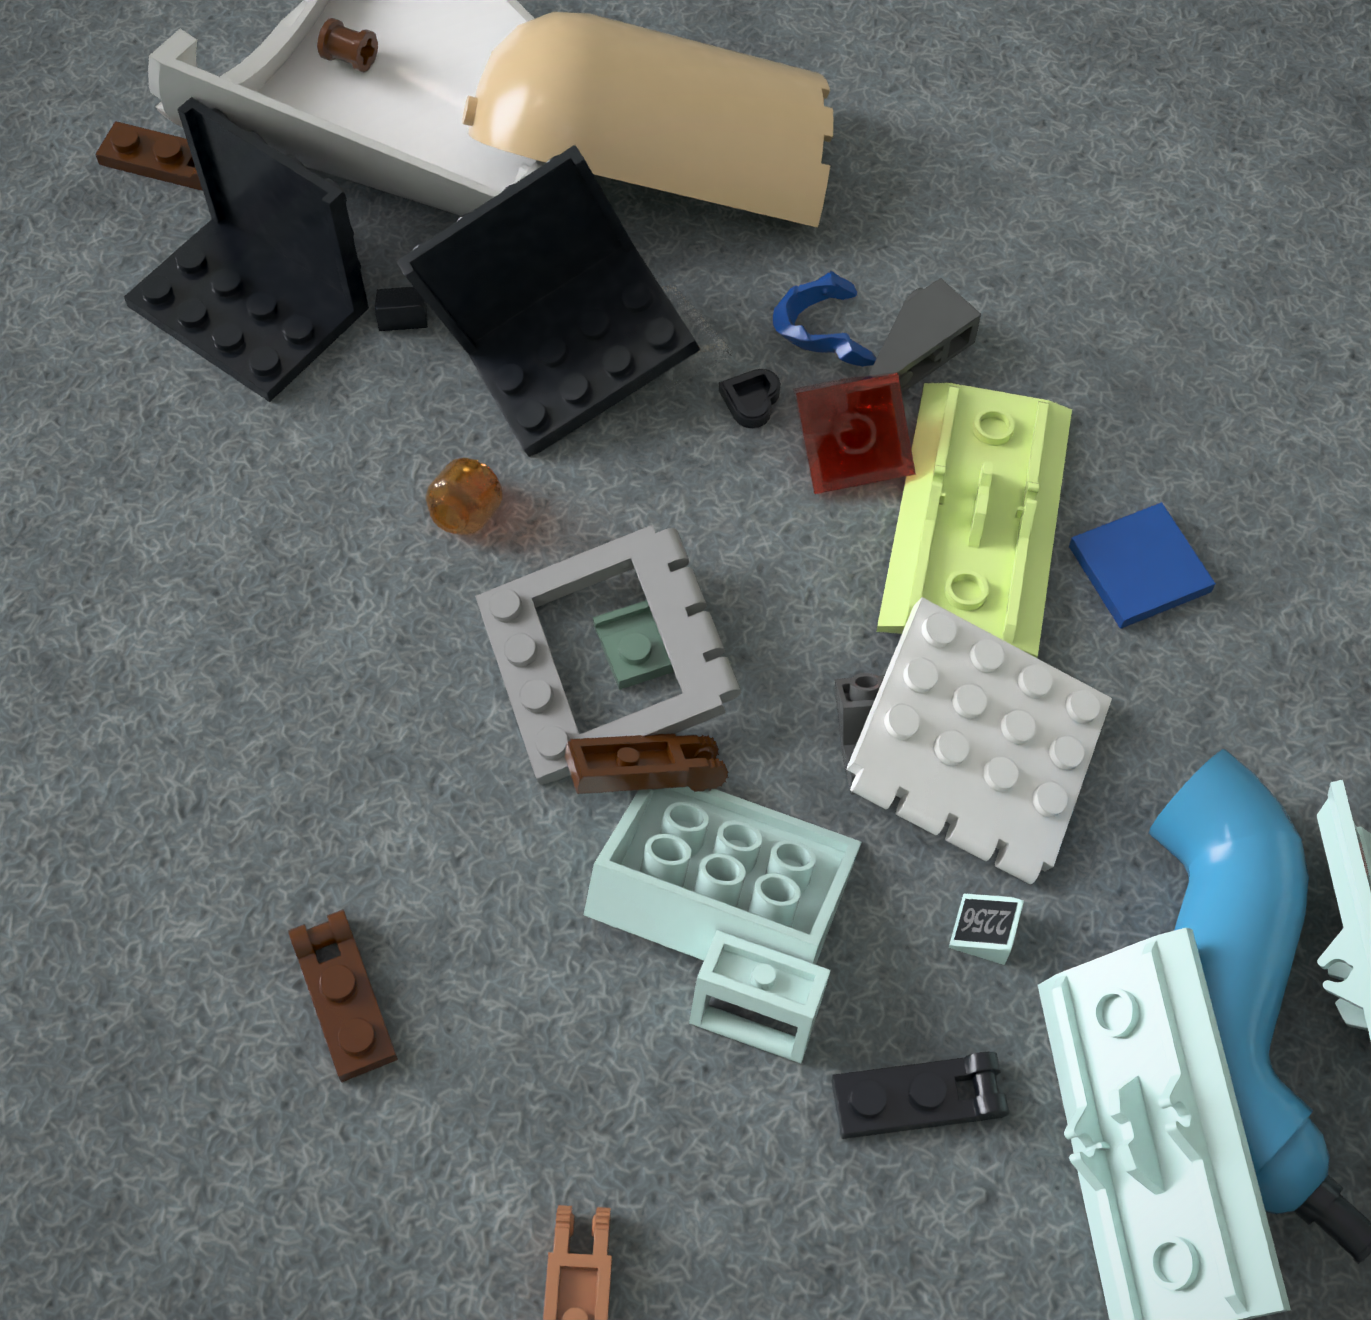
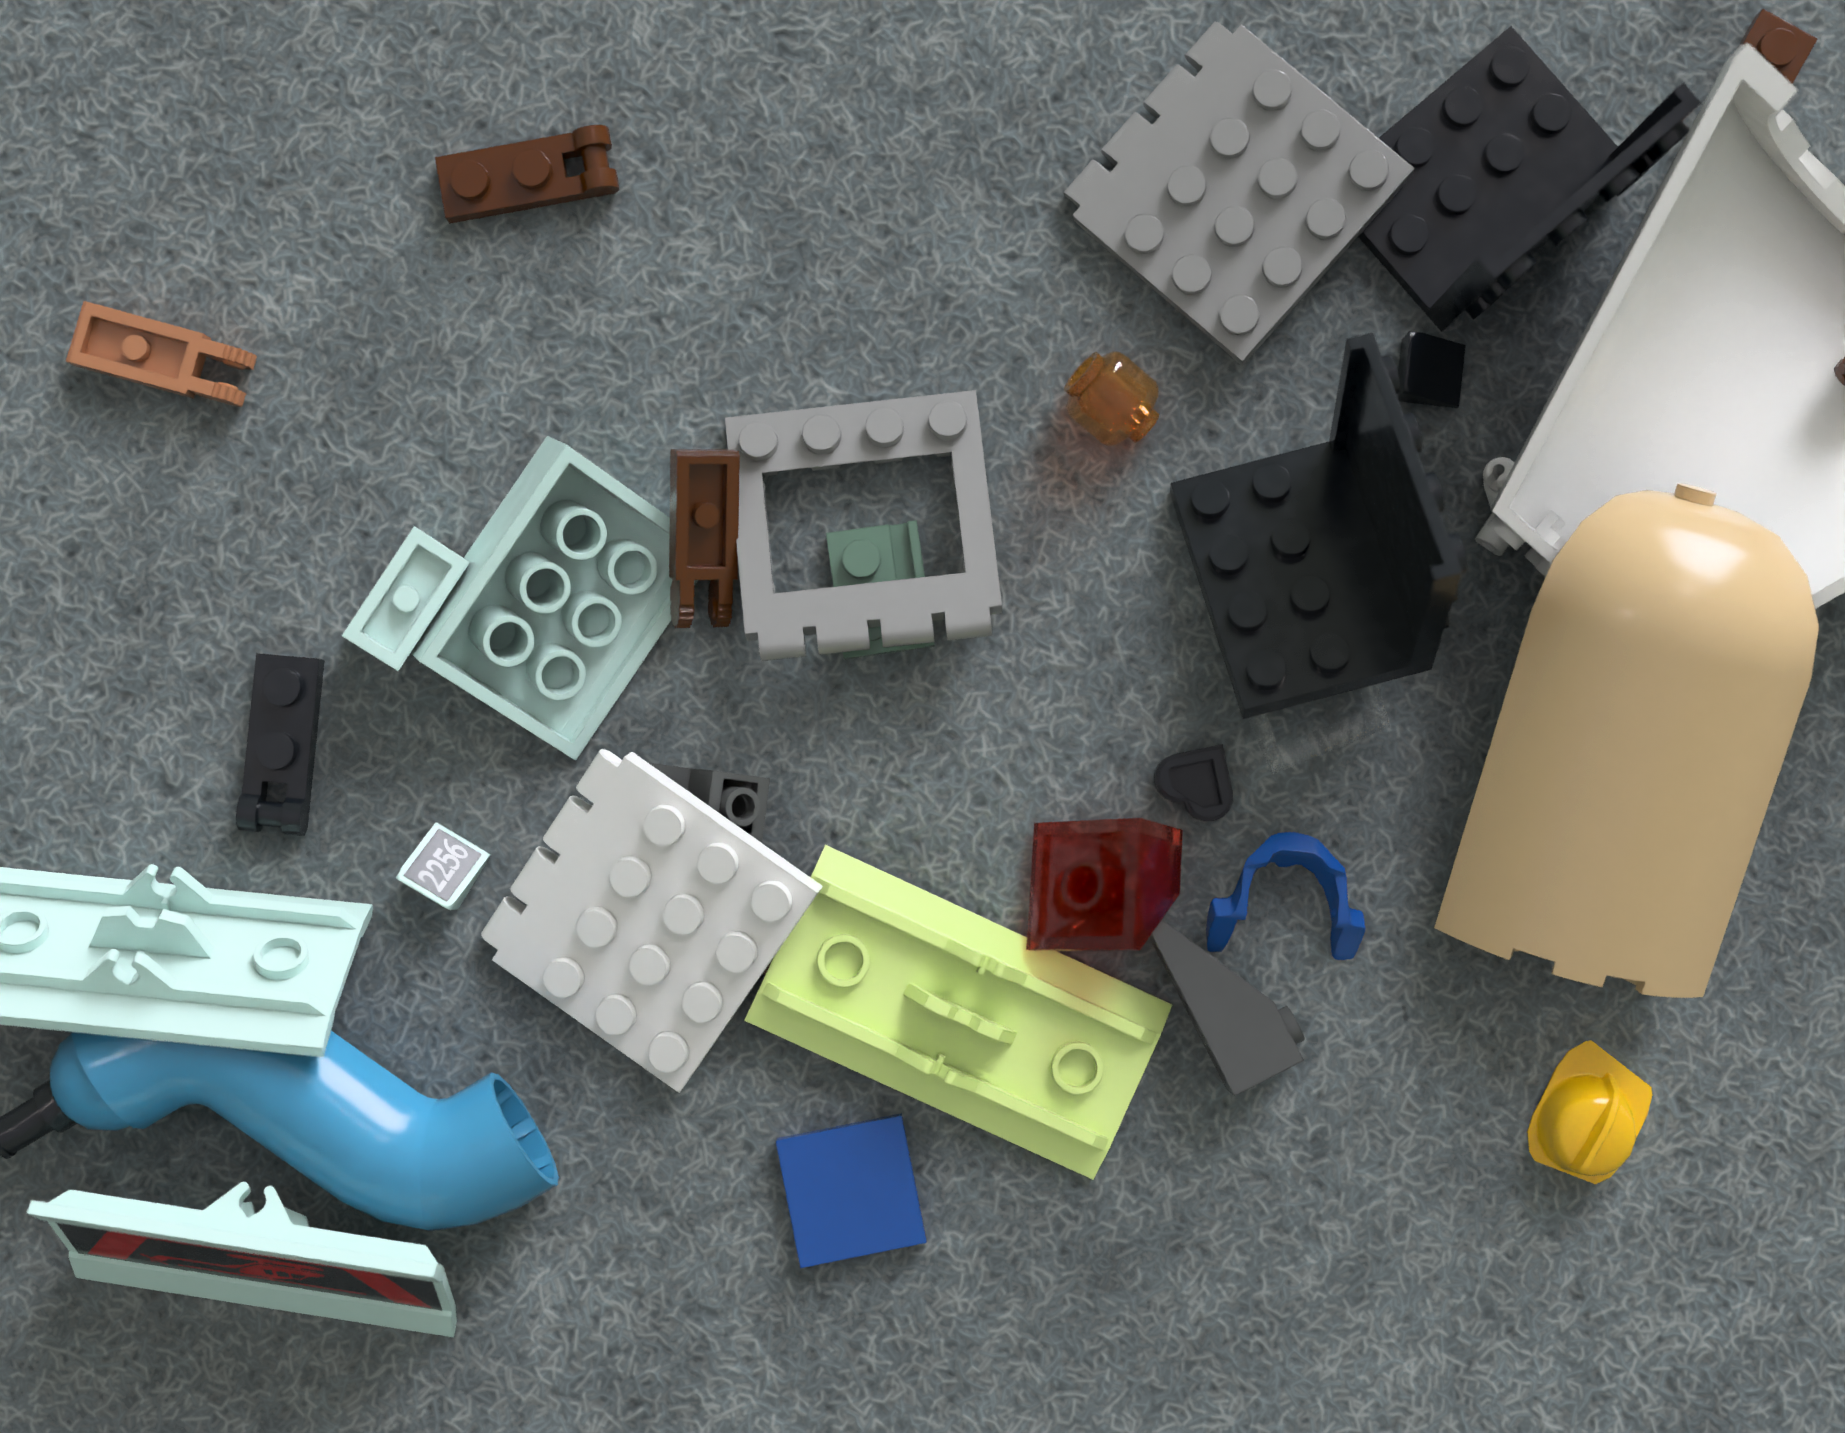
camera: 105 degrees right, 25 degrees up
(278, 446) = (1236, 189): none -> light grey hinge
(920, 131) = (1588, 1115): none -> yellow piece

